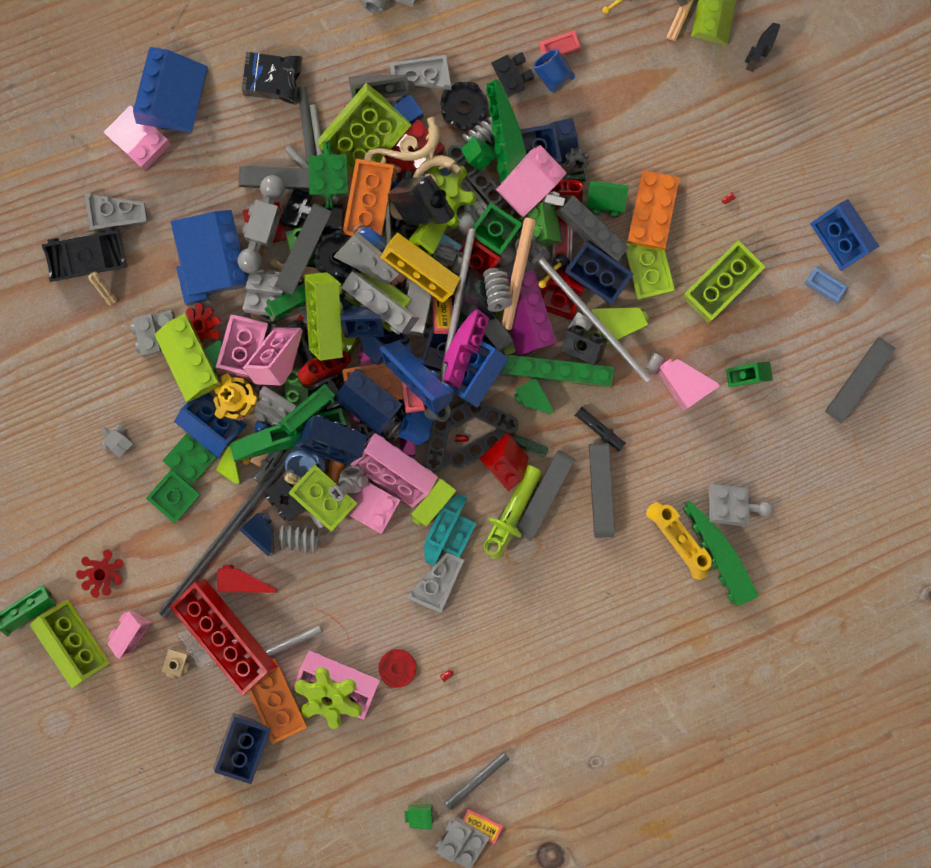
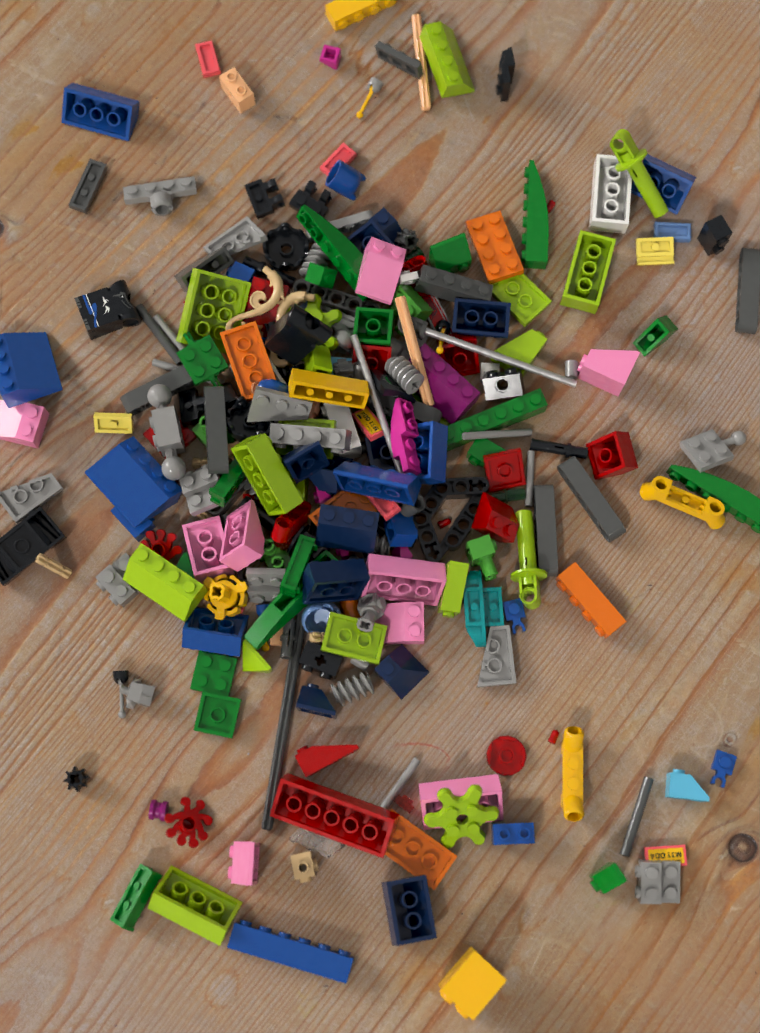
camera: 30 degrees left, 10 degrees down
(22, 481) = (70, 779): none -> black gear
(81, 548) = (158, 810): none -> magenta wheel
(108, 418) = (121, 678): none -> hinge
(127, 726) = (290, 952): none -> blue brick
(221, 186) = (113, 423): none -> light yellow plate
(257, 836) = (471, 984): none -> yellow container
(288, 659) = (404, 802): none -> clear red plate
(349, 547) = (401, 671): none -> dark blue slope
(363, 736) = (512, 833): none -> blue brick
(431, 111) = (258, 266): none -> black pin
(442, 716) = (572, 774): none -> yellow plate
(466, 44) = (259, 199): none -> black plate
(475, 485) = (481, 553): none -> bright green brick
(475, 551) = (514, 612): none -> blue plate
(530, 779) = (684, 787): none -> medium azure slope
(535, 113) = (348, 223): none -> light grey beam
(539, 422) = (504, 469): none -> red tile
(546, 578) = (590, 600): none -> orange brick
(551, 386) = (496, 434): none -> light grey bar
(559, 441) = (529, 478): none -> light grey bar
(575, 780) = (723, 764): none -> blue plate
(643, 461) = (612, 455): none -> red slope
(706, 206) = (536, 221): none -> green slope
(790, 218) = (609, 196): none -> white brick
(798, 295) = (655, 251): none -> light yellow plate
(822, 200) = (631, 159): none -> lime piece
(859, 312) = (714, 235): none -> black brick

